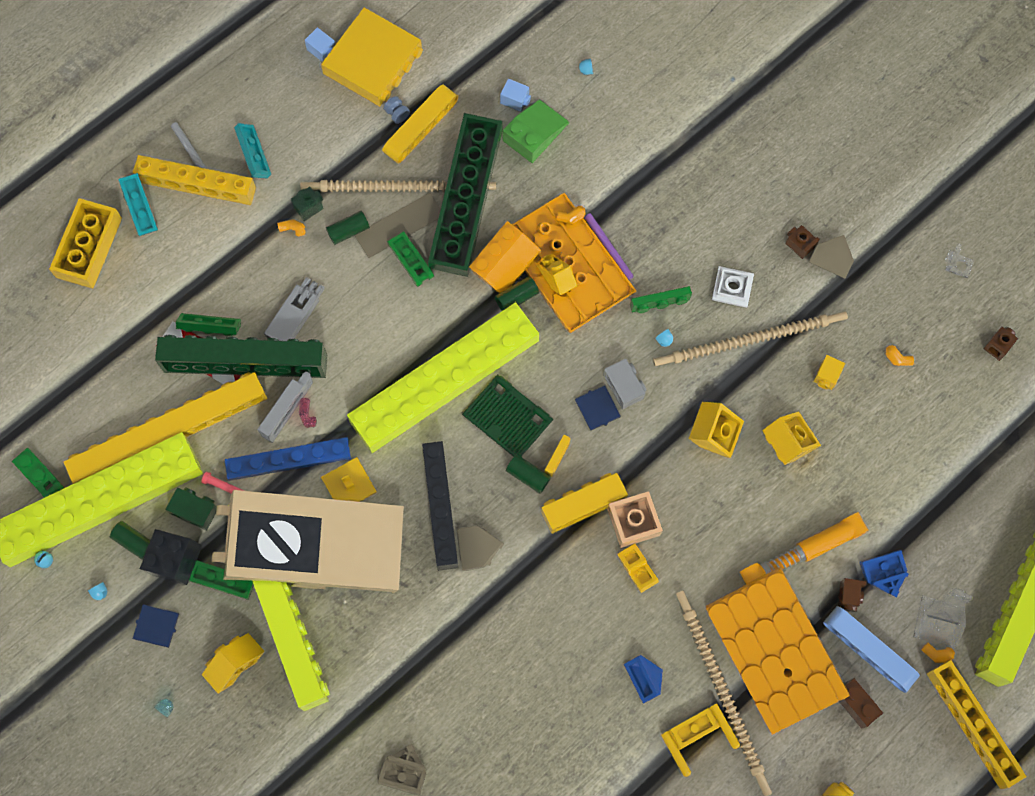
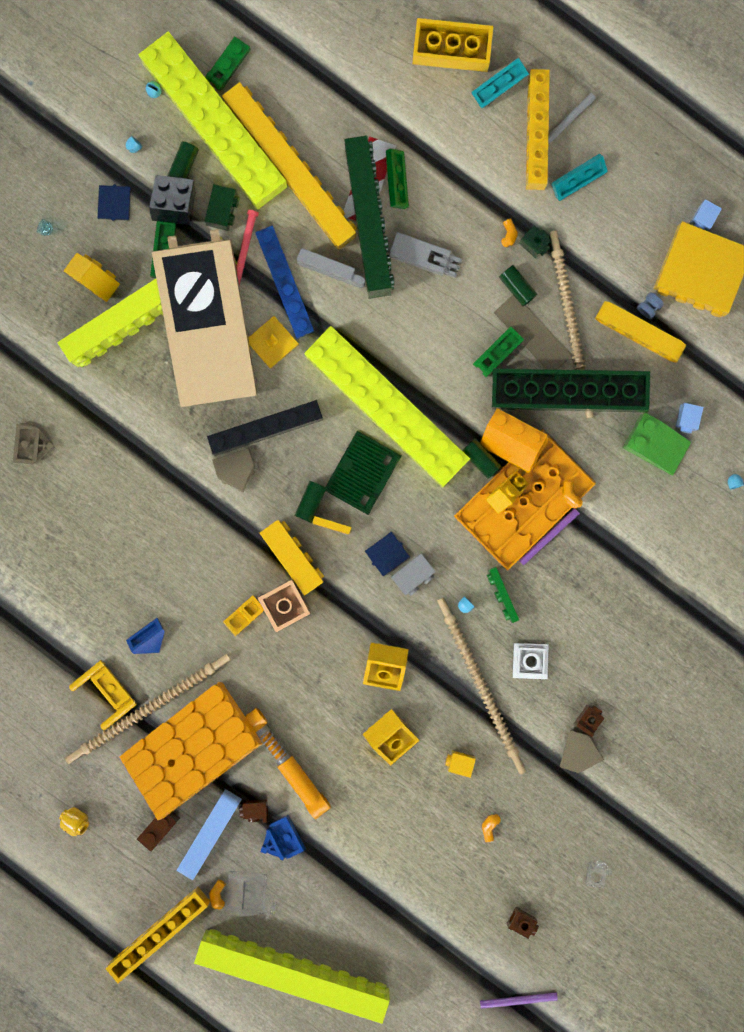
camera: 80 degrees right, 15 degrees up
(304, 413) = (323, 291): clear pink arm -> none

